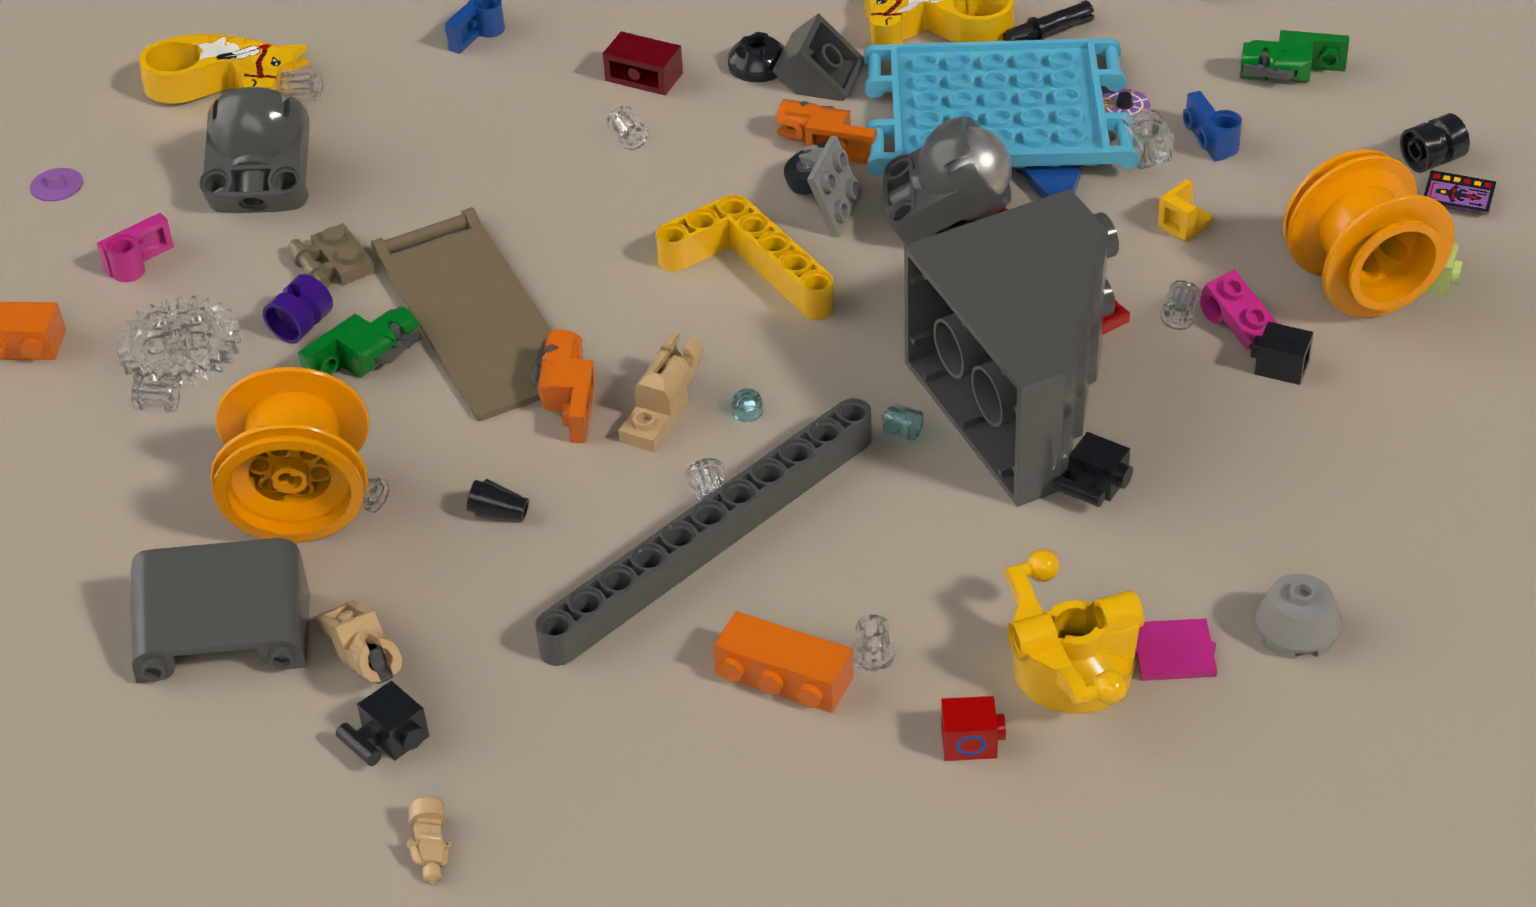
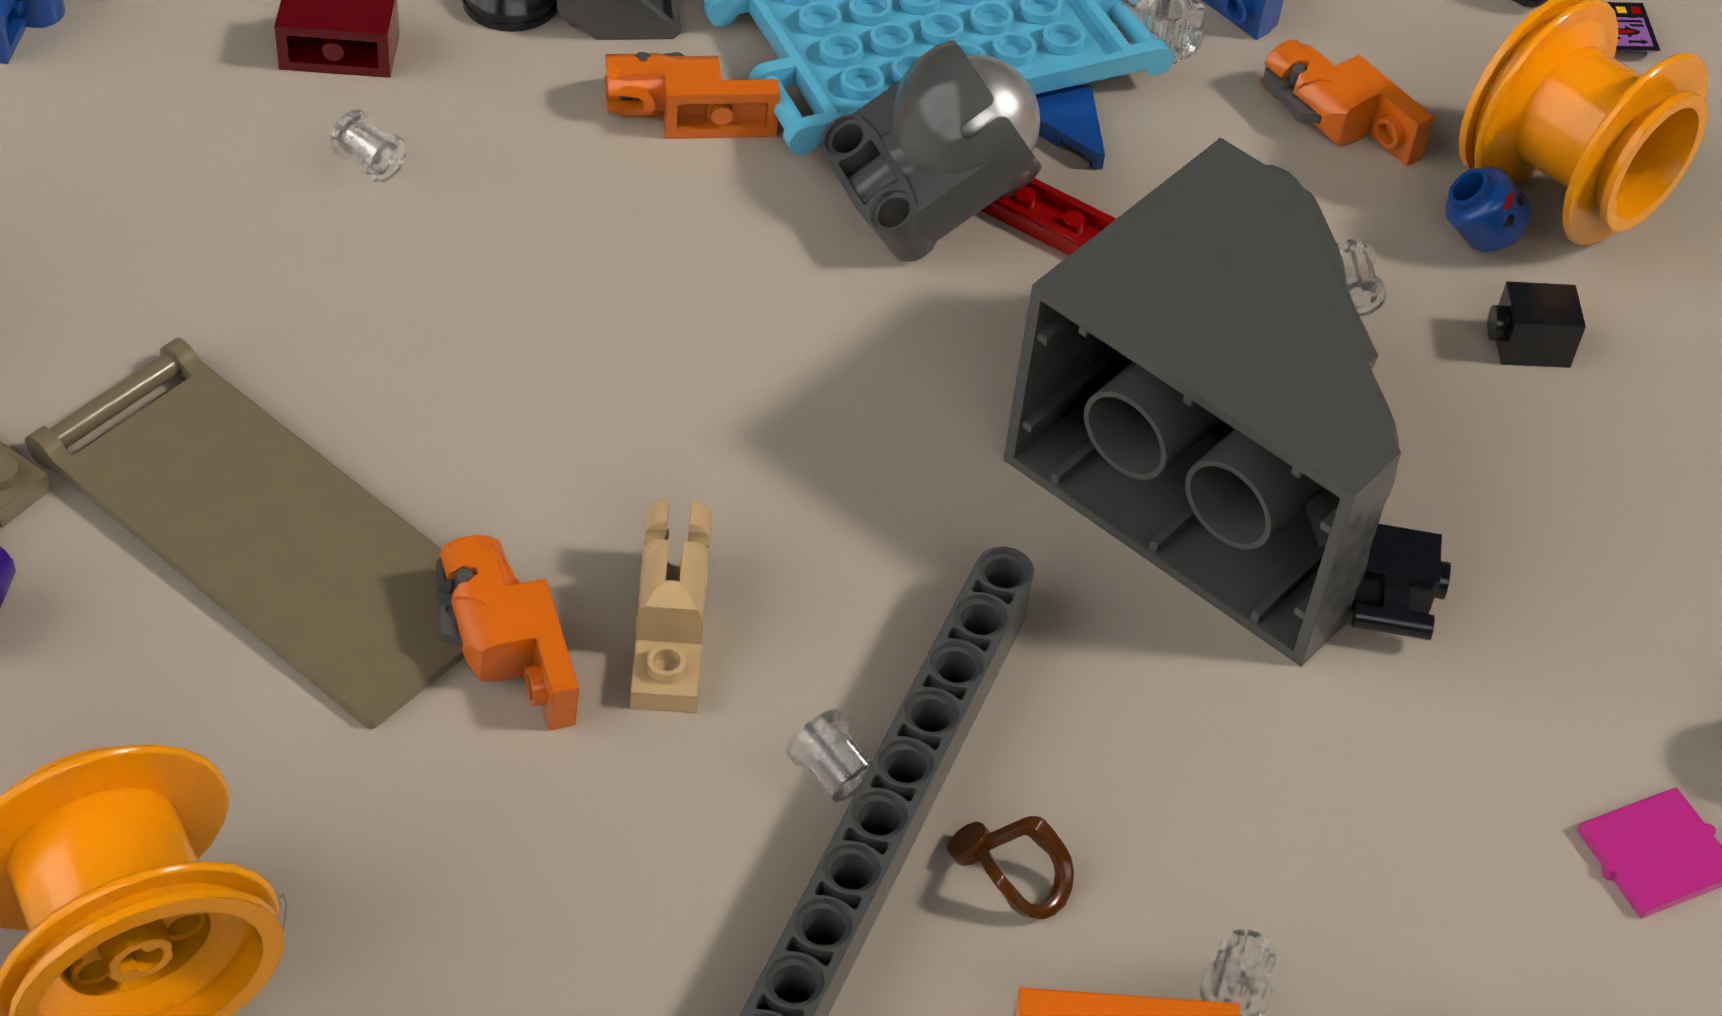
camera: 30 degrees left, 5 degrees up
(362, 344) = (106, 639): green plate -> none
(496, 502) = (492, 881): black cone -> none
(742, 227) = (692, 307): yellow beam -> none
(747, 405) = (813, 595): clear light blue hinge -> none
(760, 550) = (975, 842): none -> reddish brown piece
(826, 173) = (730, 160): light grey plate -> none
(902, 421) = (1066, 565): clear light blue hose -> none
(1078, 651) = (1507, 886): yellow piece -> none
(1179, 215) = (1270, 133): yellow panel -> none
(1235, 303) = (1430, 259): dark pink plate -> none
(1239, 203) = (1347, 100): none -> orange plate
(1290, 280) = (1487, 209): none -> blue head

